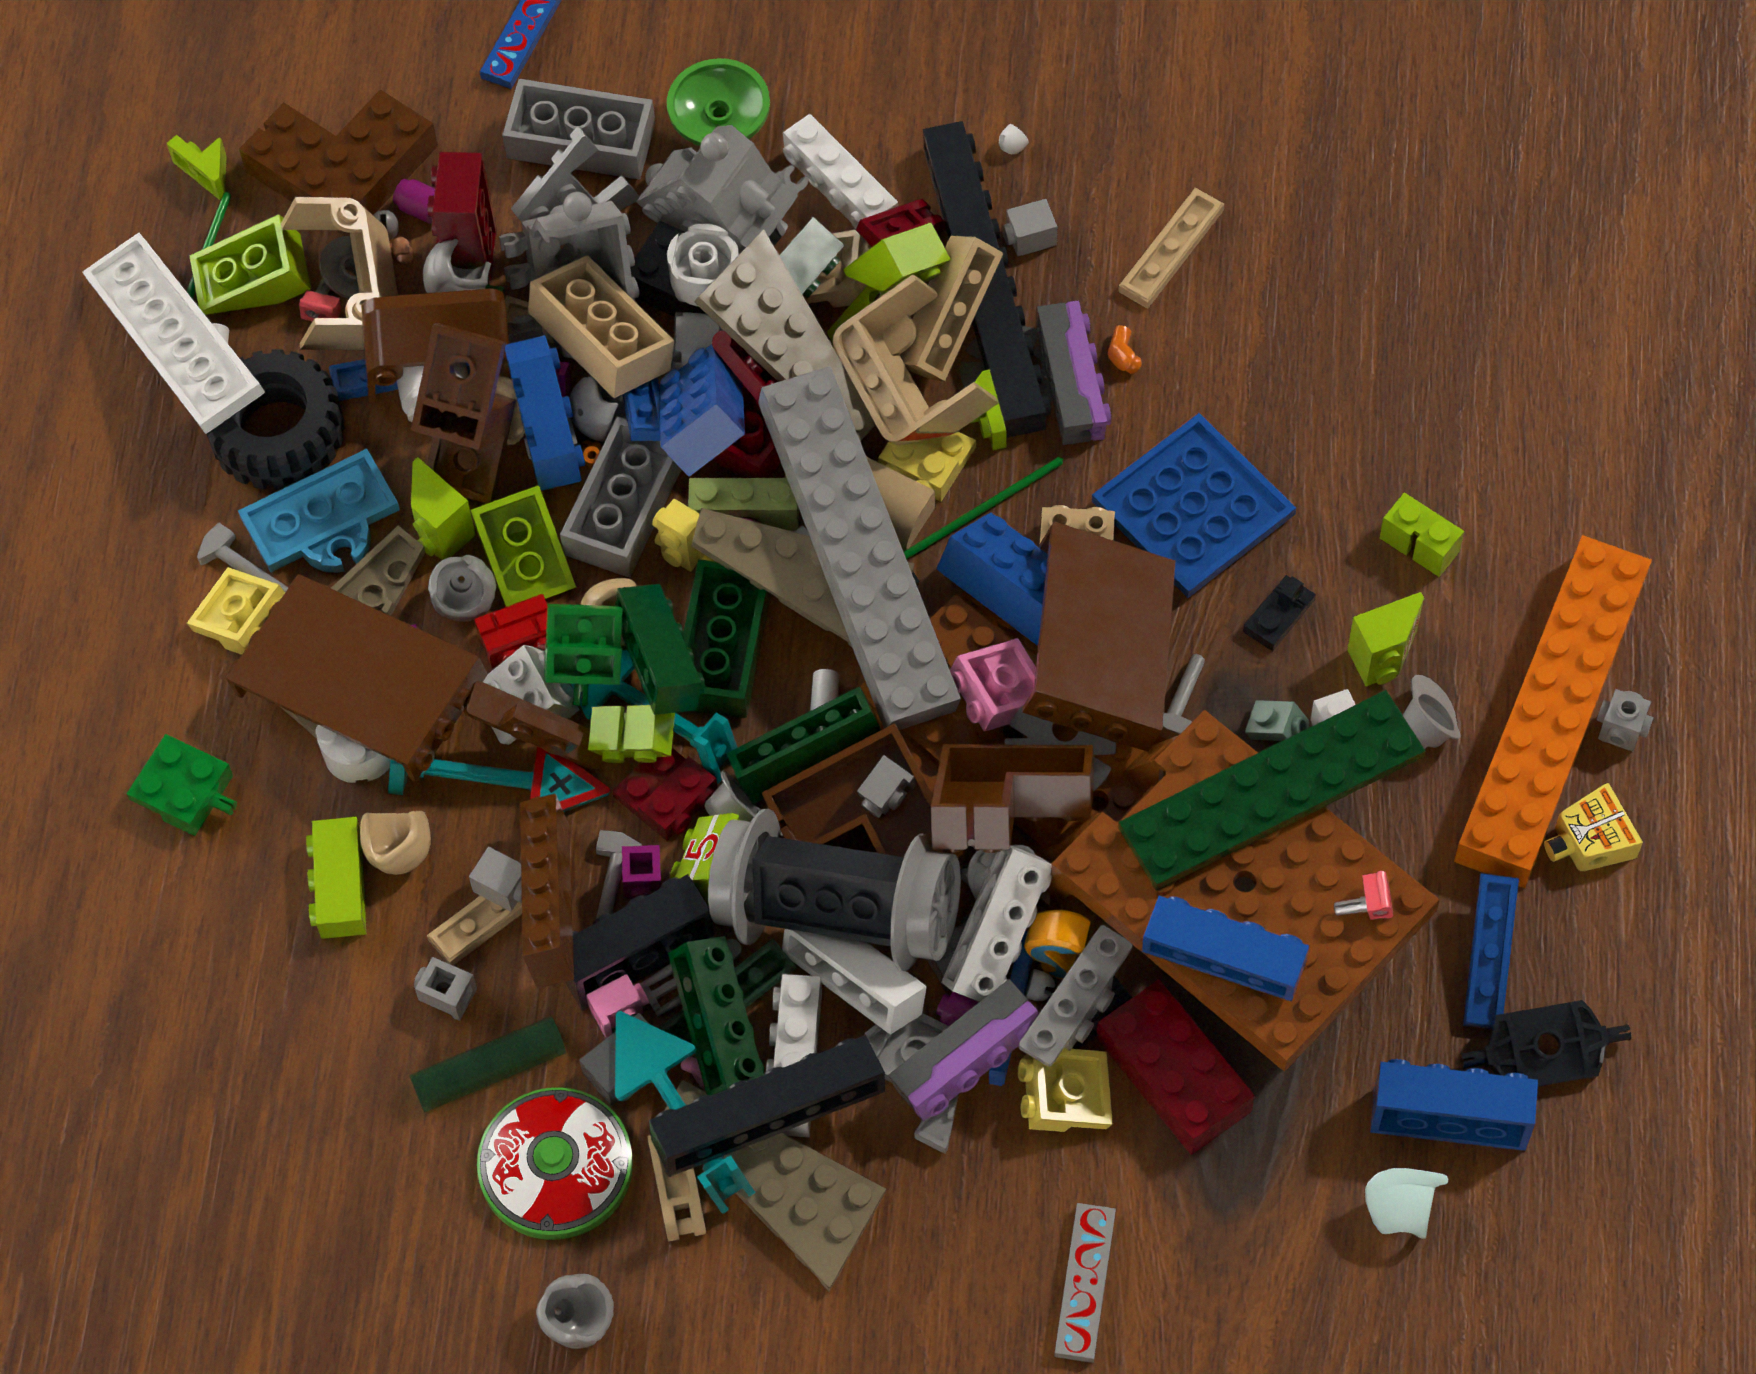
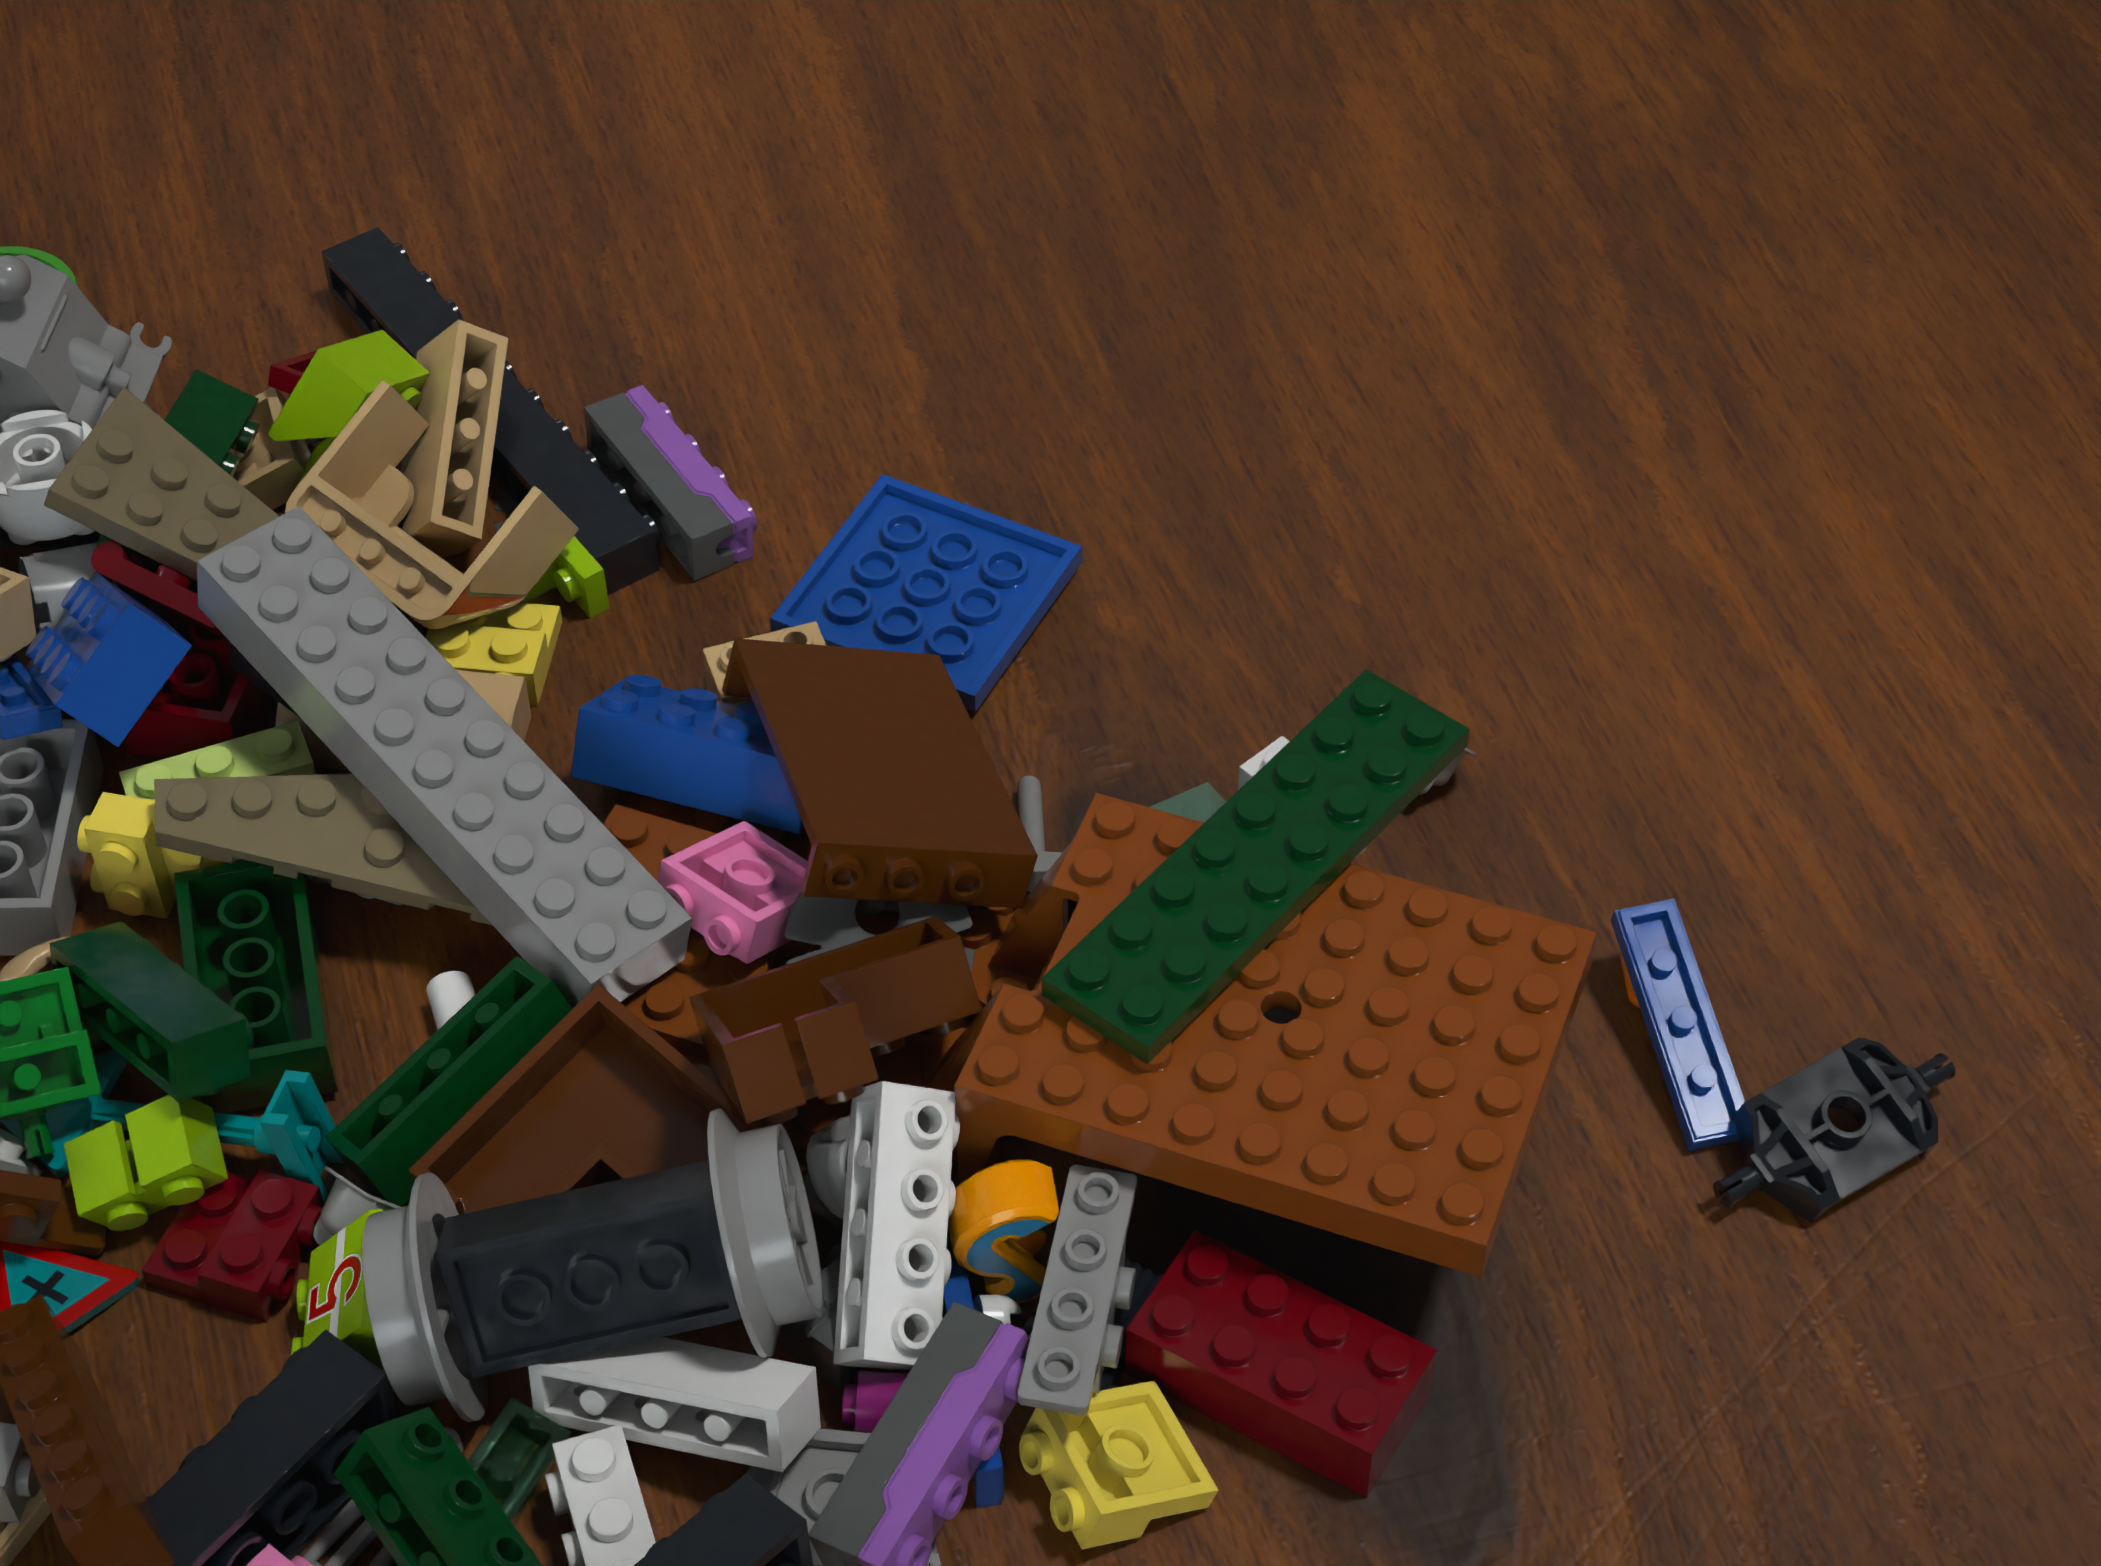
camera: 25 degrees left, 15 degrees down
(610, 845) = (181, 1359): light grey piece -> none
(640, 870) = (233, 1364): magenta brick -> none
(835, 171) = (208, 334): white brick -> none
(885, 787) = (618, 1094): light grey brick -> none
(985, 506) = (568, 731): green axle -> none
(1012, 140) = (460, 240): white hinge -> none
(1030, 227) = (536, 328): light grey brick -> none
(1120, 353) = (733, 442): orange arm -> none
(1171, 248) = (746, 305): tan tile -> none
(1225, 947) = (1310, 1097): blue brick -> none
(1279, 612) = (1121, 687): black hinge -> none
(1376, 899) = (1506, 955): coral piece -> none
(1383, 639) = (1296, 657): lime slope -> none
(1402, 1199) = (1756, 1426): light aqua piece -> none
(1437, 538) = (1299, 514): lime piece -> none
(1454, 1105) = (1754, 1254): blue brick -> none
(1552, 711) = (1589, 686): orange brick -> none
(1594, 832) = (1739, 816): light yellow torso -> none
(1624, 719) = (1695, 661): light grey brick -> none

